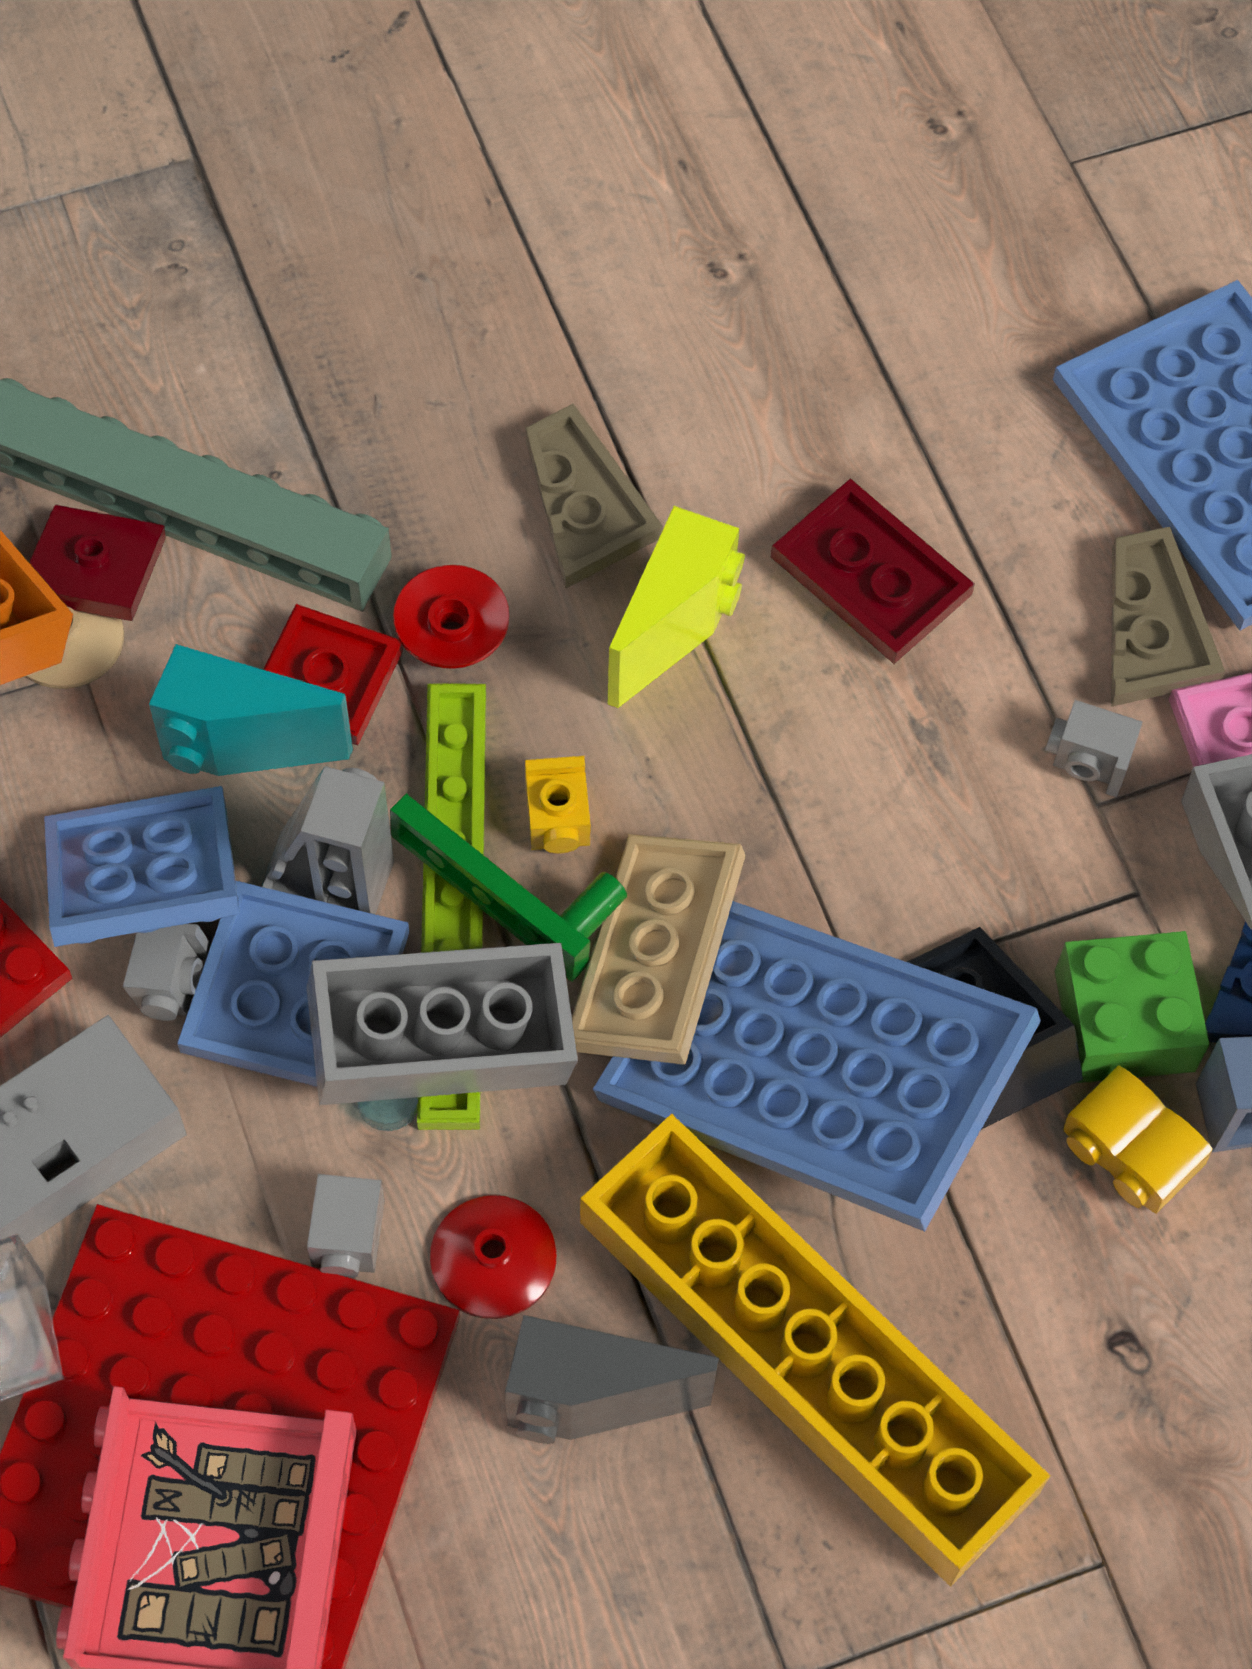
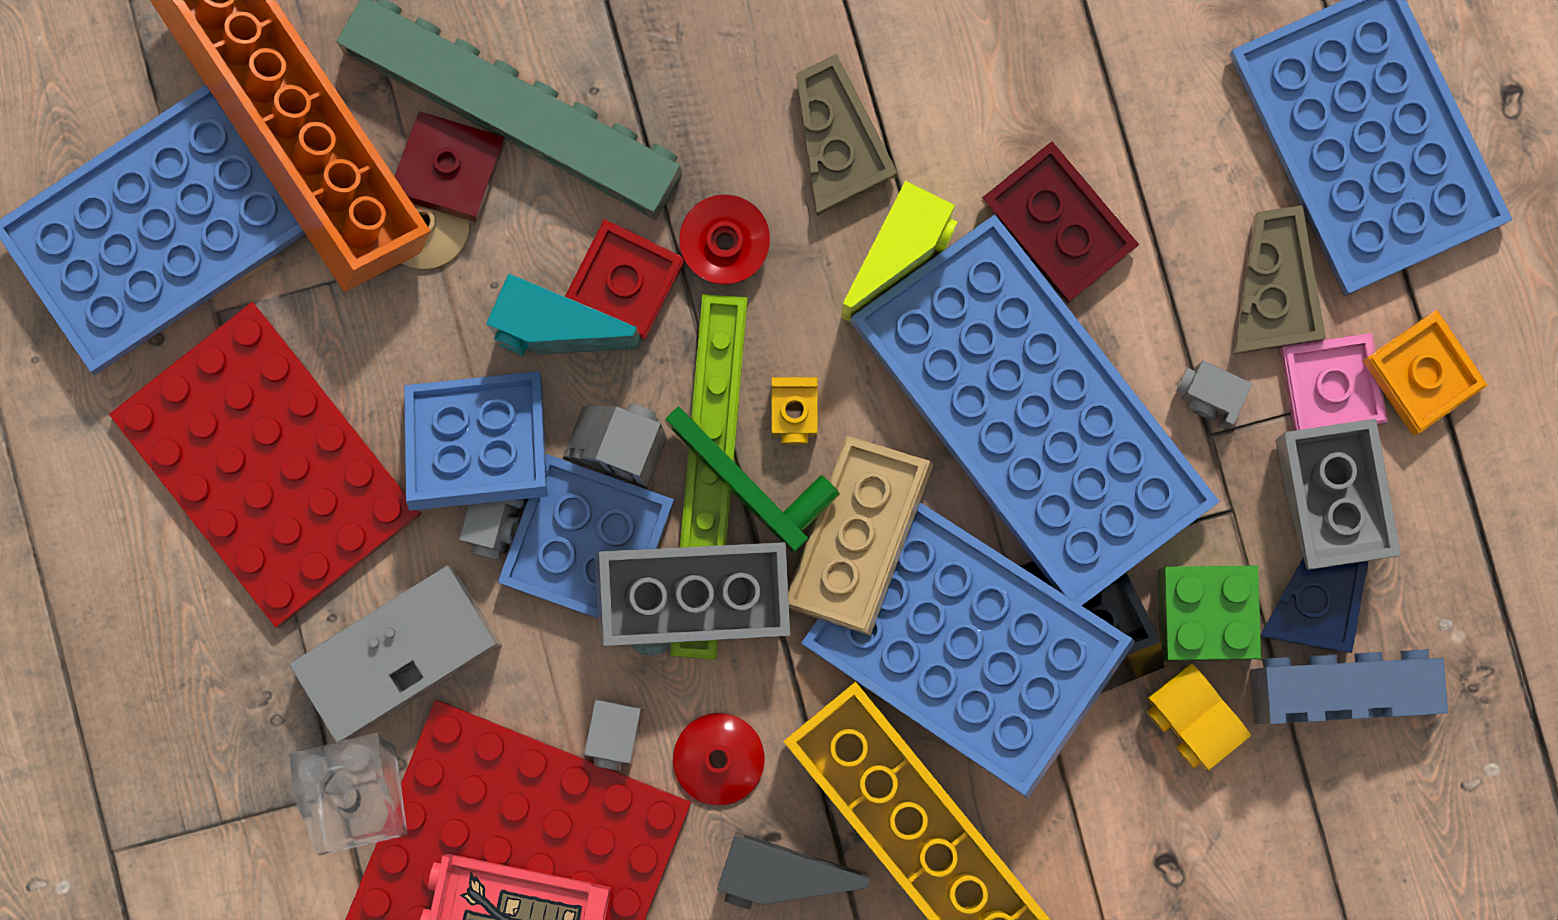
camera: 10 degrees right, 20 degrees up
(870, 782) = (1034, 412): none -> medium blue plate

